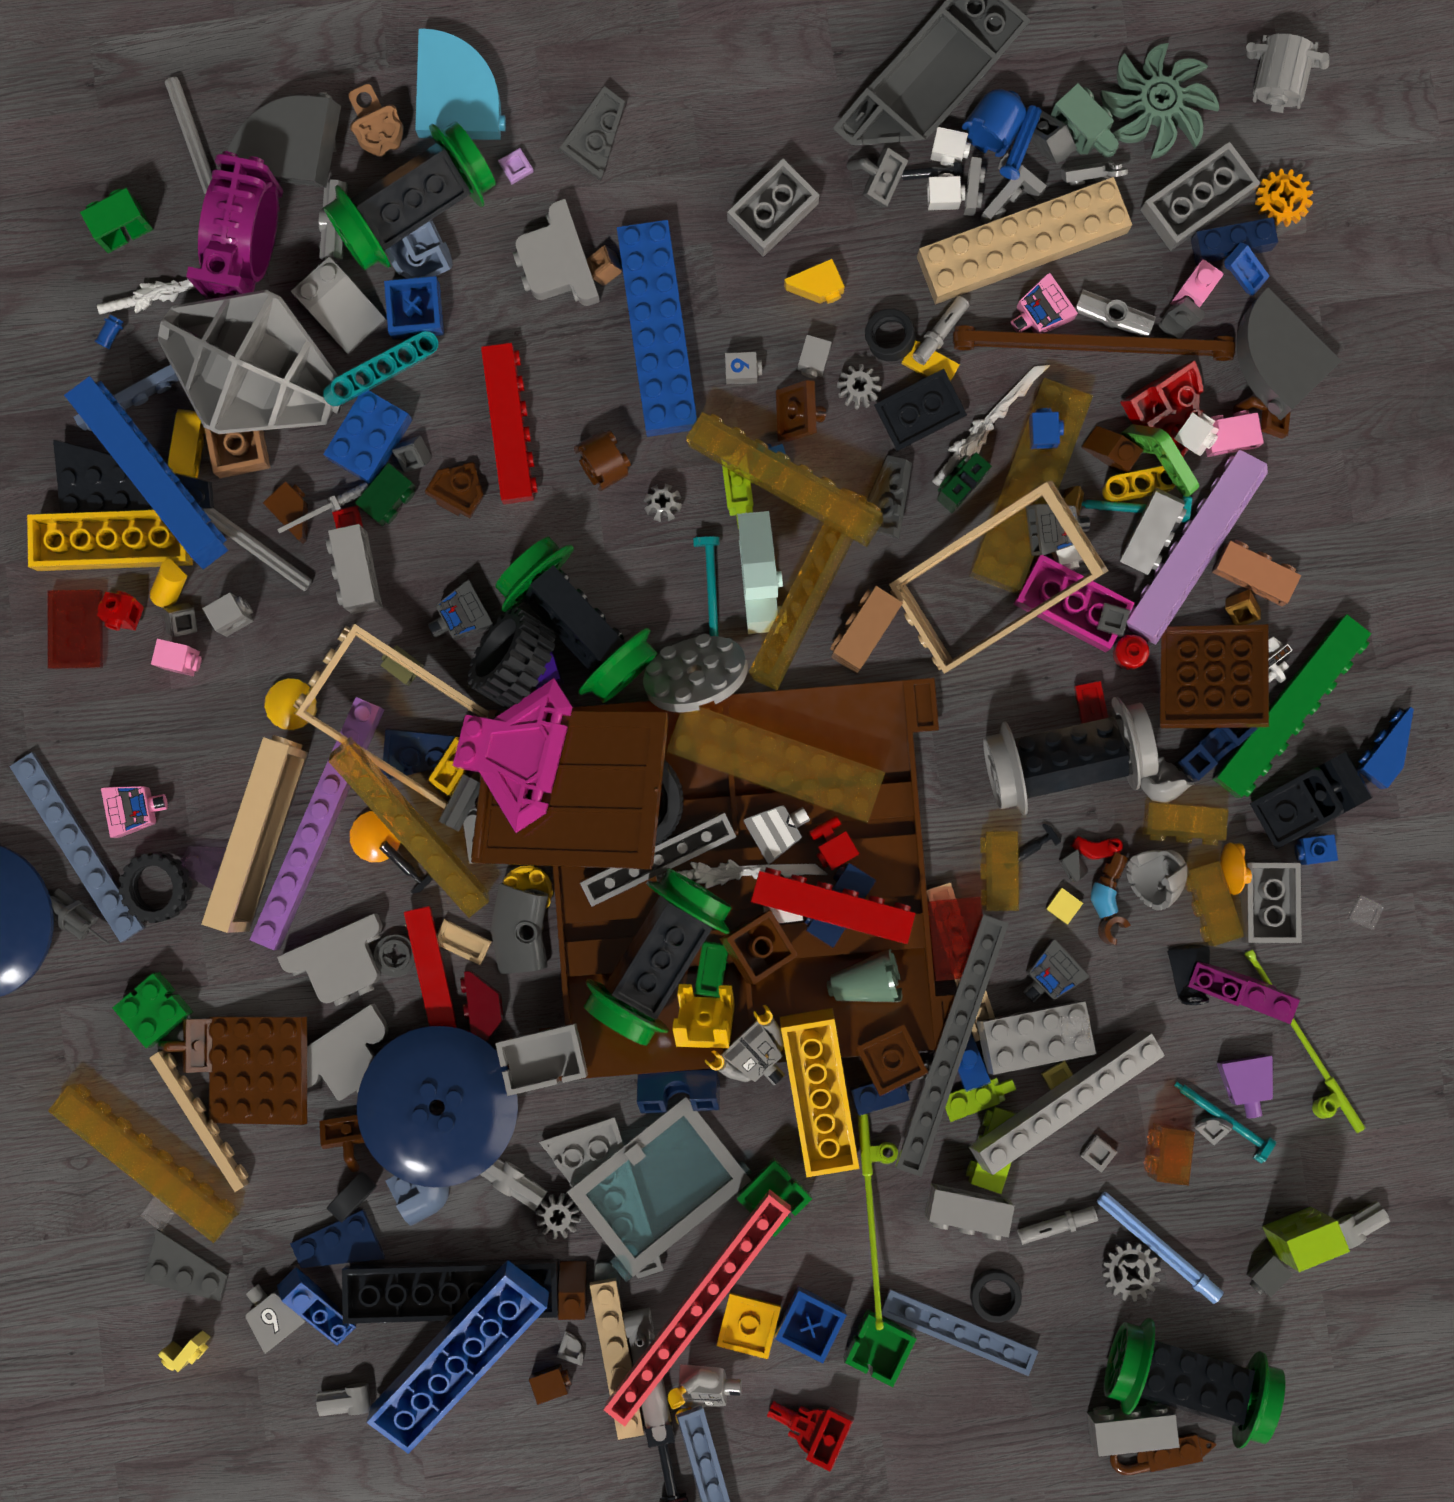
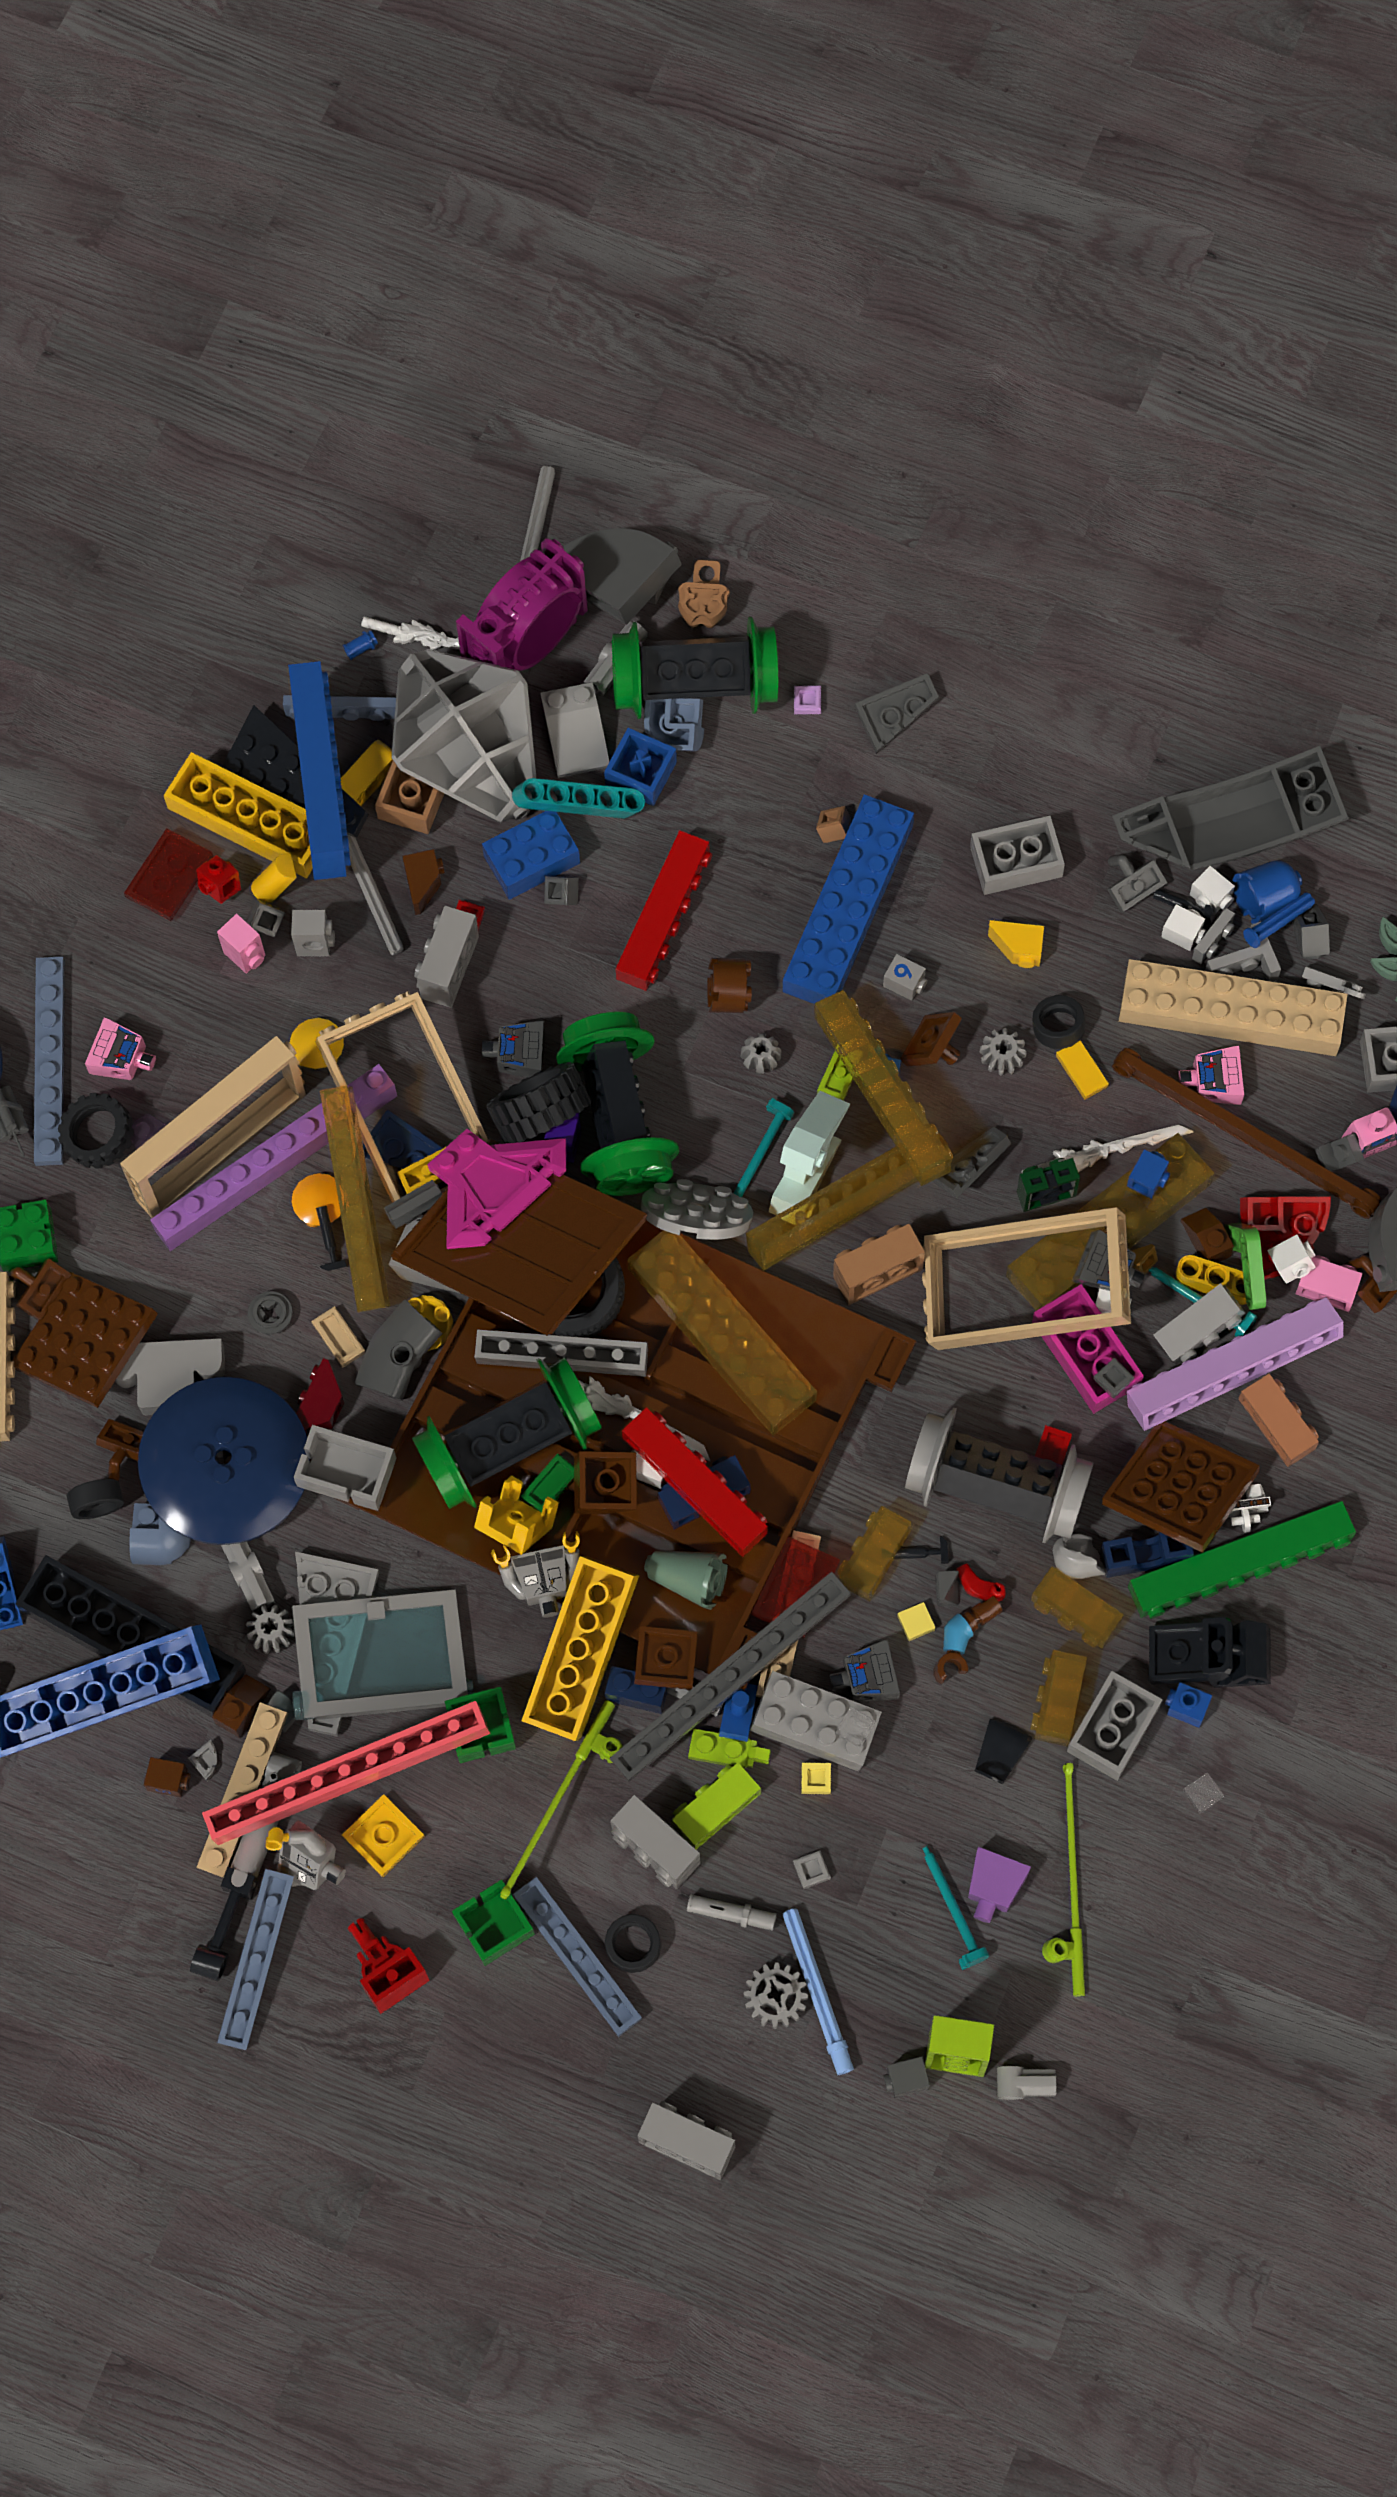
camera: 30 degrees right, 15 degrees down
(109, 215) = (419, 545): green piece -> none
(333, 503) = (464, 891): light grey sword -> none
(338, 961) = (217, 1287): light grey brick -> none
(339, 1243) = (60, 1538): dark blue wing -> none
(386, 495) = (515, 911): dark green brick -> none
(397, 670) = (431, 1066): olive brick -> none
(430, 967) = (296, 1336): red tile -> none
(455, 87) = (797, 602): medium azure brick -> none
(457, 489) = (581, 941): reddish brown plate -> none
(555, 259) = (793, 795): light grey brick -> none
(657, 1088) = (433, 1565): dark blue arch -> none
(776, 830) = (685, 1392): torso -> none
(810, 1324) = (441, 1862): blue brick -> none
(814, 356) = (977, 1003): light grey brick -> none
(837, 848) = (731, 1438): red brick -> none
(920, 410) = (1047, 1102): black plate -> none
(934, 338) = (1099, 1046): light grey pin -> none
(1066, 1101) = (808, 1792): light grey brick -> none
(1086, 121) = (1349, 933): sand green hinge -> none
(1131, 319) = (1268, 1104): light grey piece -> none
(1131, 652) = (1116, 1423): red head -> none
(1157, 877) = (1020, 1639): light grey hair -> none
(1169, 1154) = (878, 1902): clear orange brick -> none
(1191, 1451) = (703, 2192): reddish brown plate -> none
(1195, 1383) = (770, 2123): brick -> none
(1213, 1129) = (935, 1909): light grey tile -> none
(1234, 867) = (1095, 1673): light orange dish -> none
(1243, 608) = (1249, 1445): pearl gold slope -> none
(1244, 991) = (1040, 1794): magenta slope -> none
(1389, 754) = (1304, 1658): blue slope -> none

